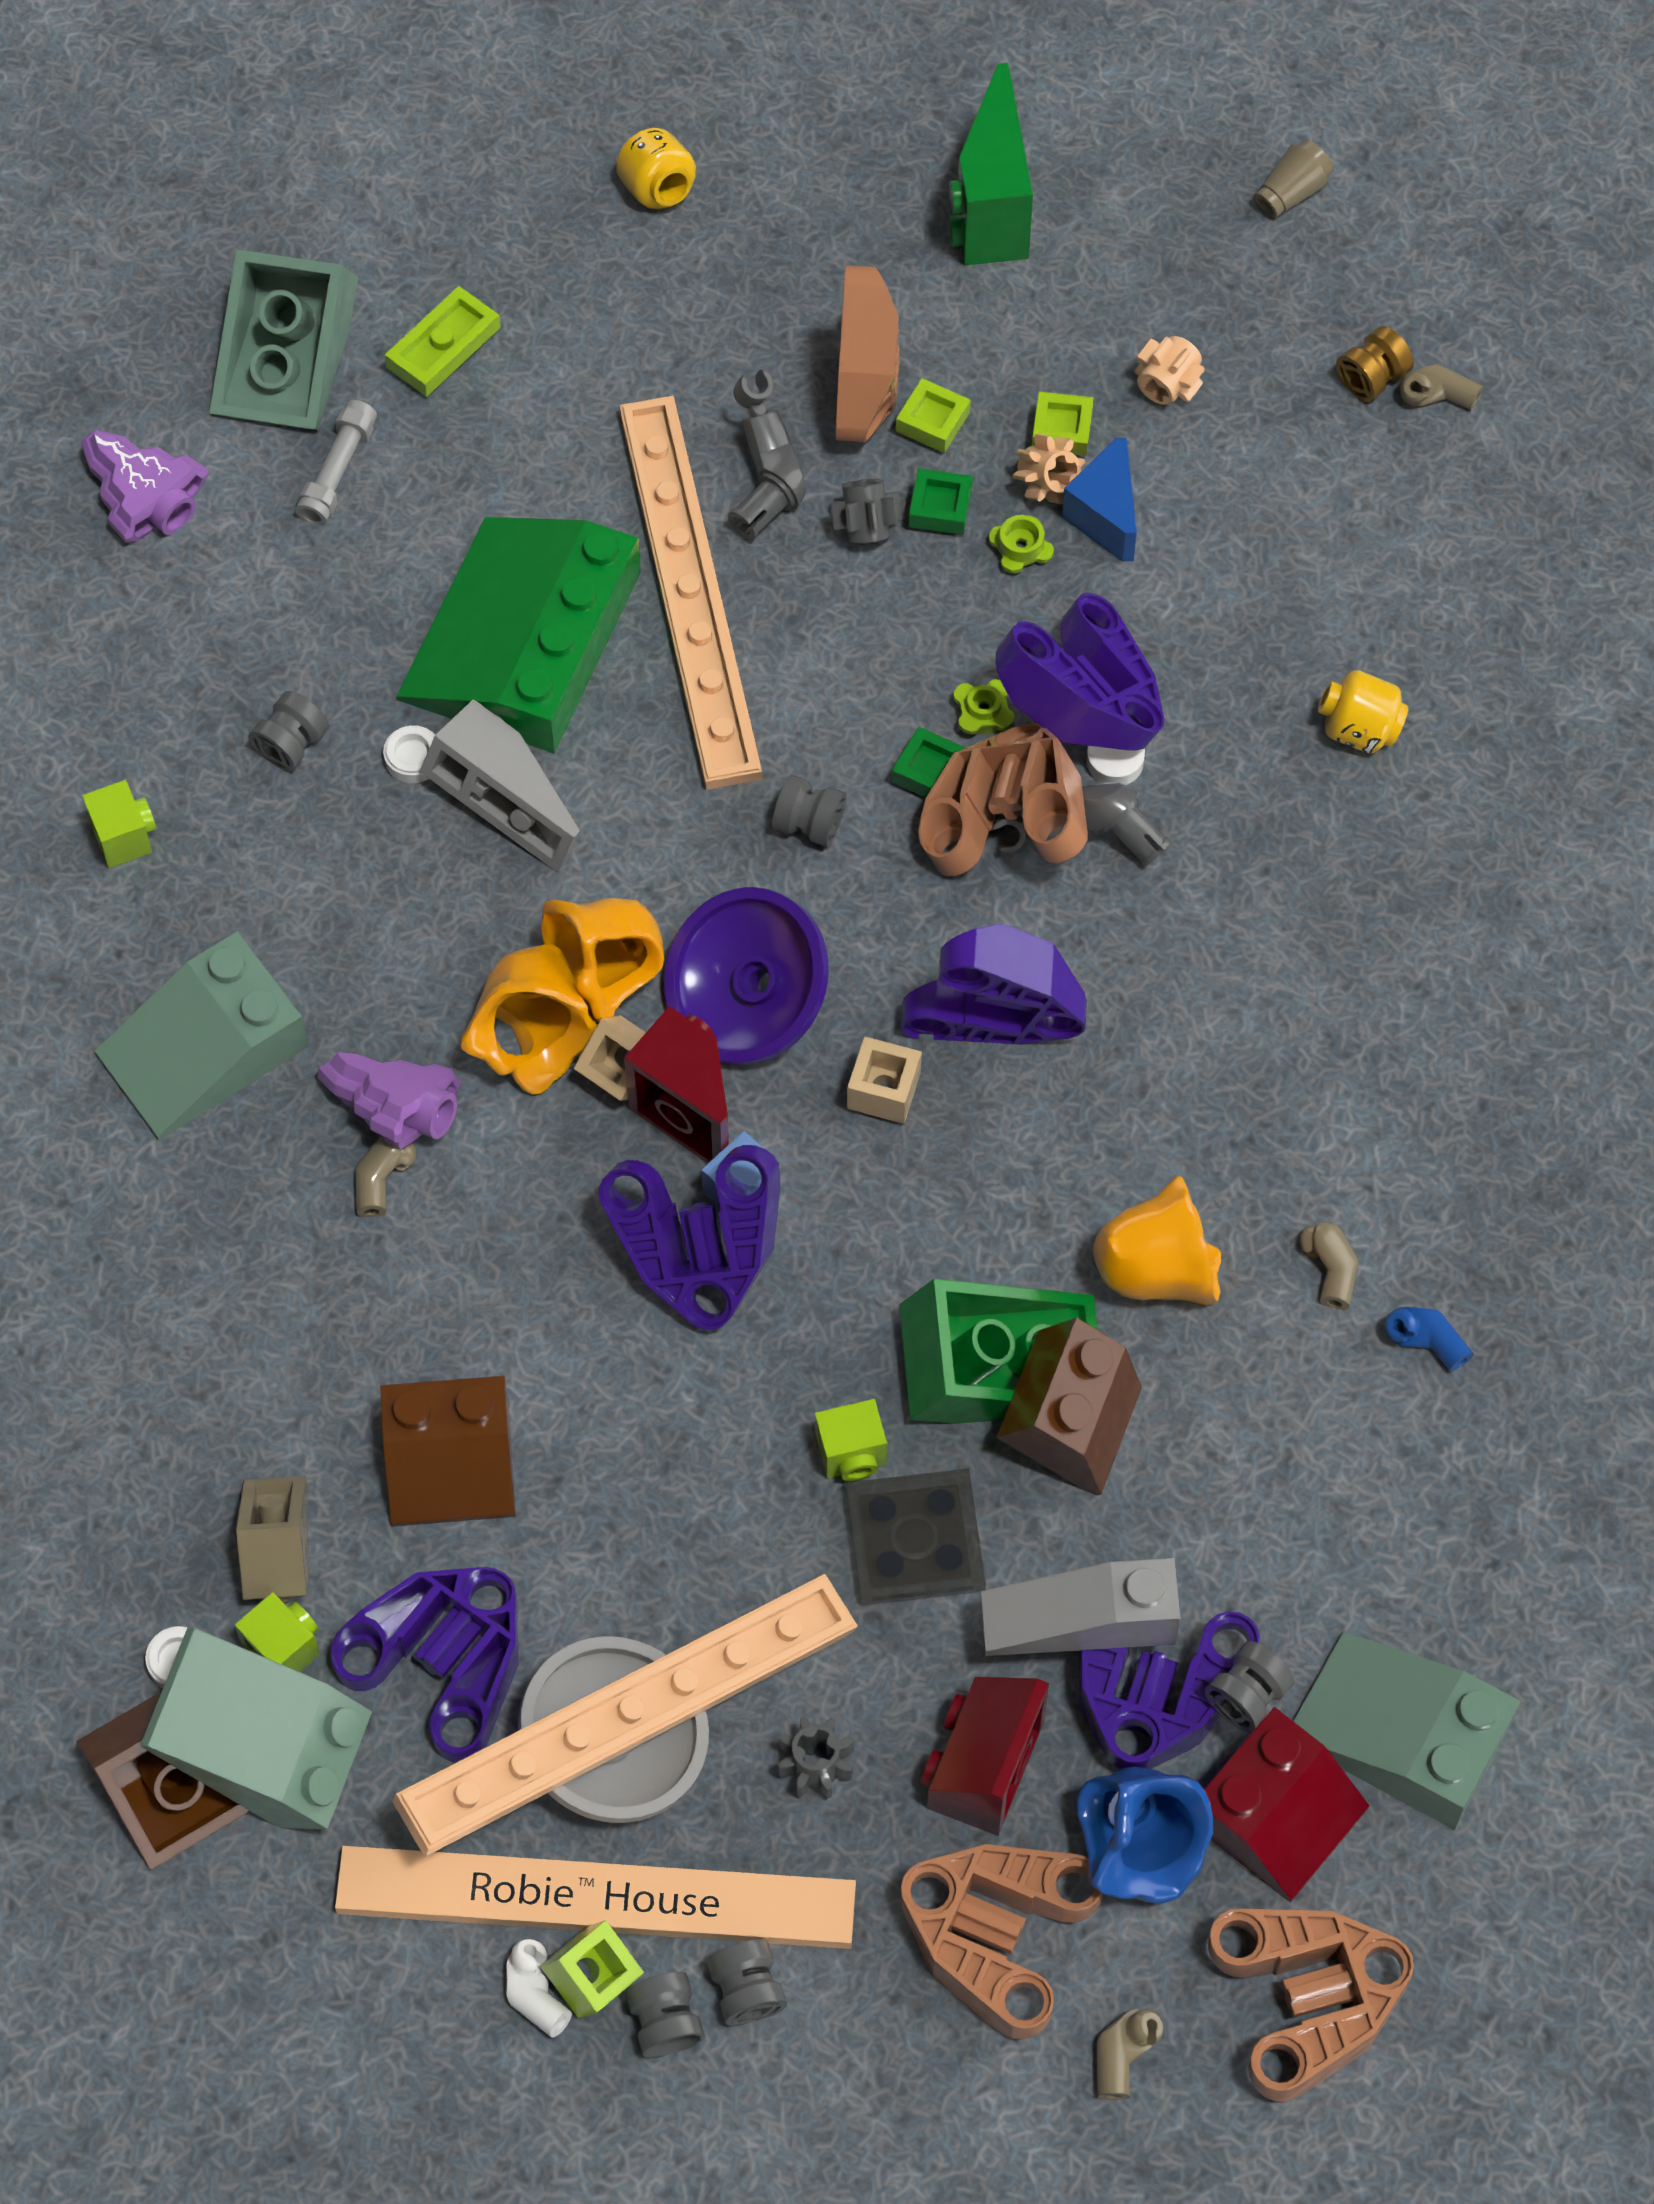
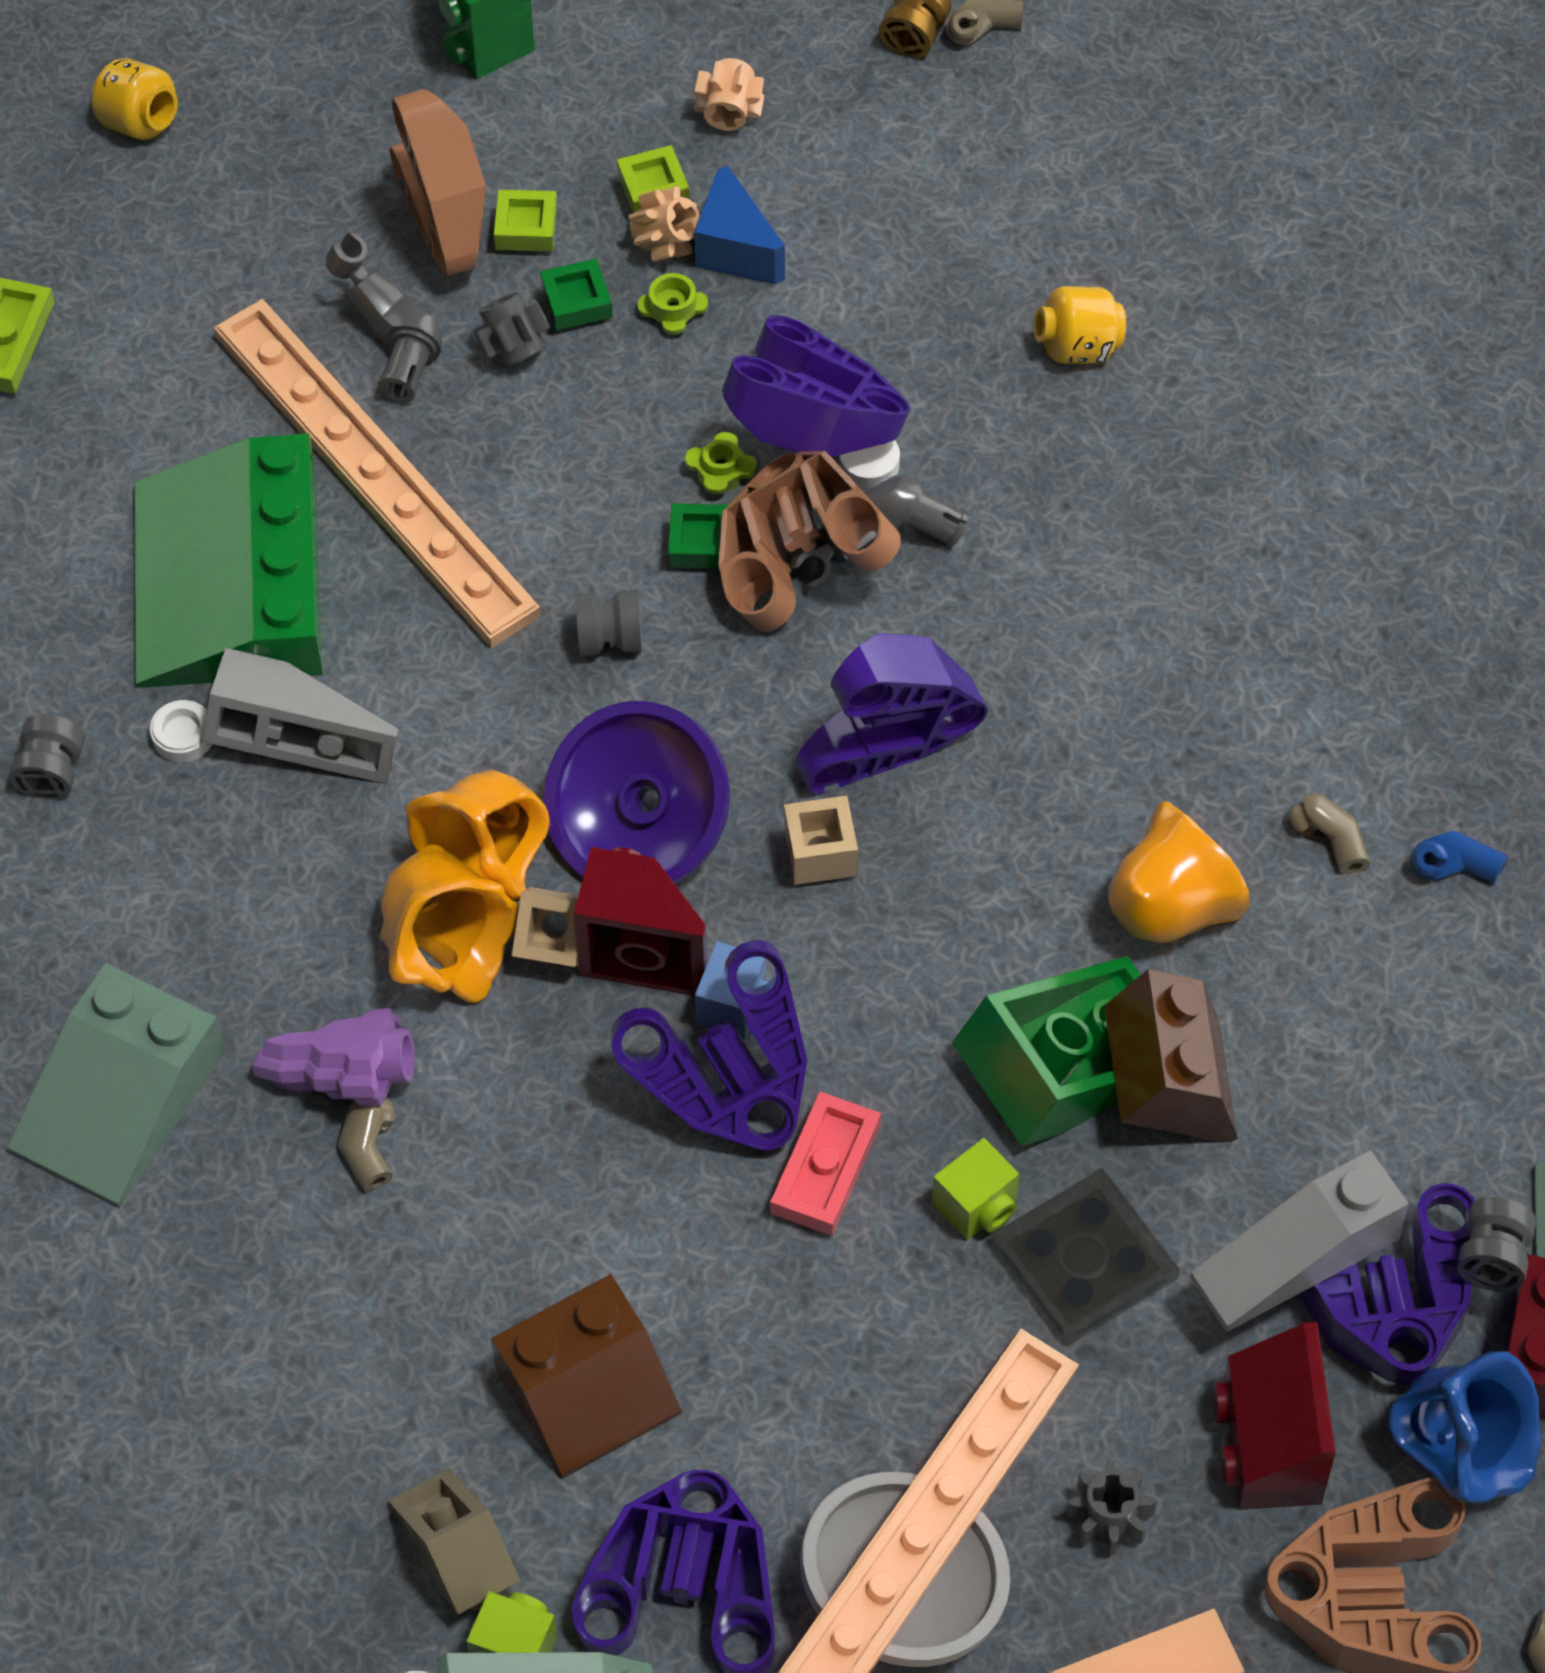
camera: 25 degrees left, 5 degrees down
(740, 1360) = (825, 1163): none -> coral plate

